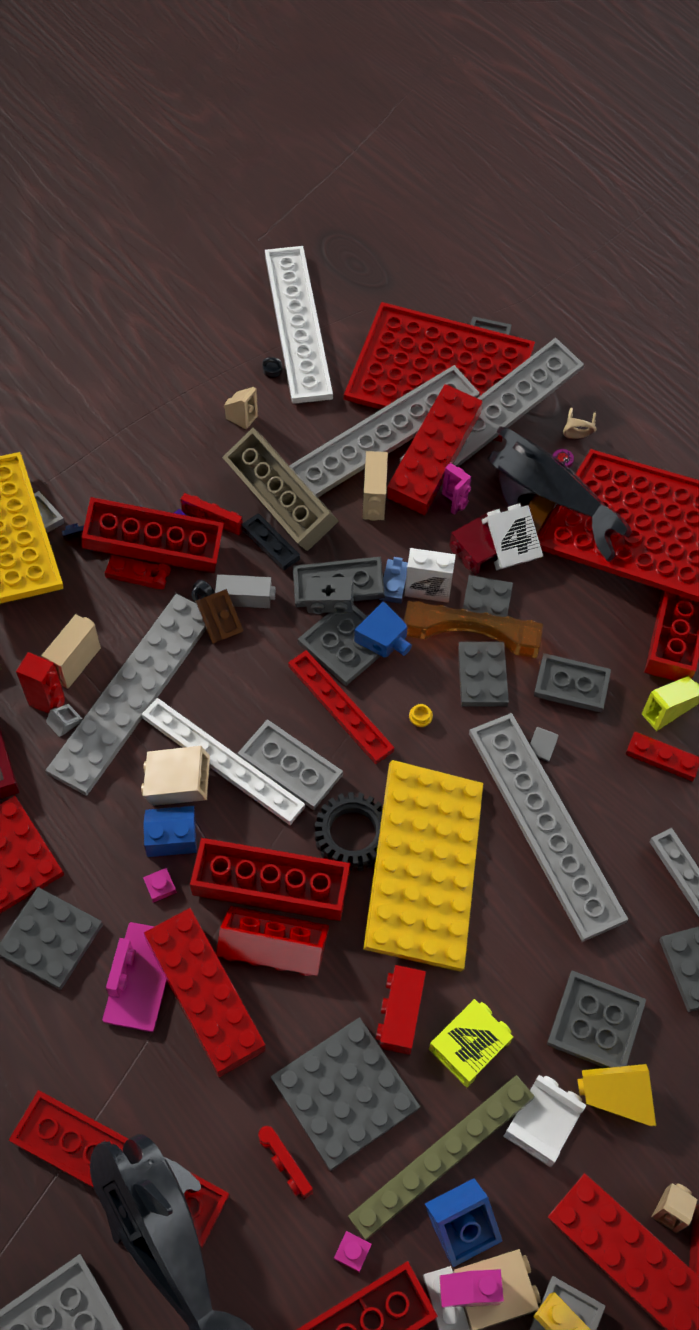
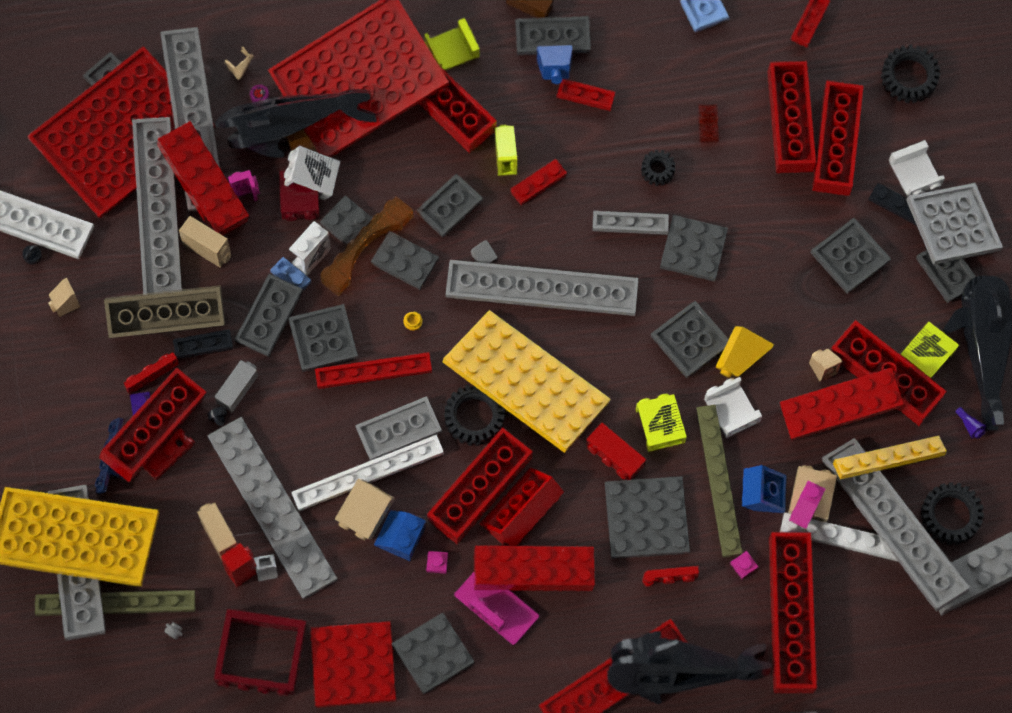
camera: 60 degrees left, 10 degrees up
(219, 616) = (249, 414): reddish brown plate -> none
(329, 595) = (283, 317): dark grey brick -> none
(383, 632) = (337, 307): blue torso -> none

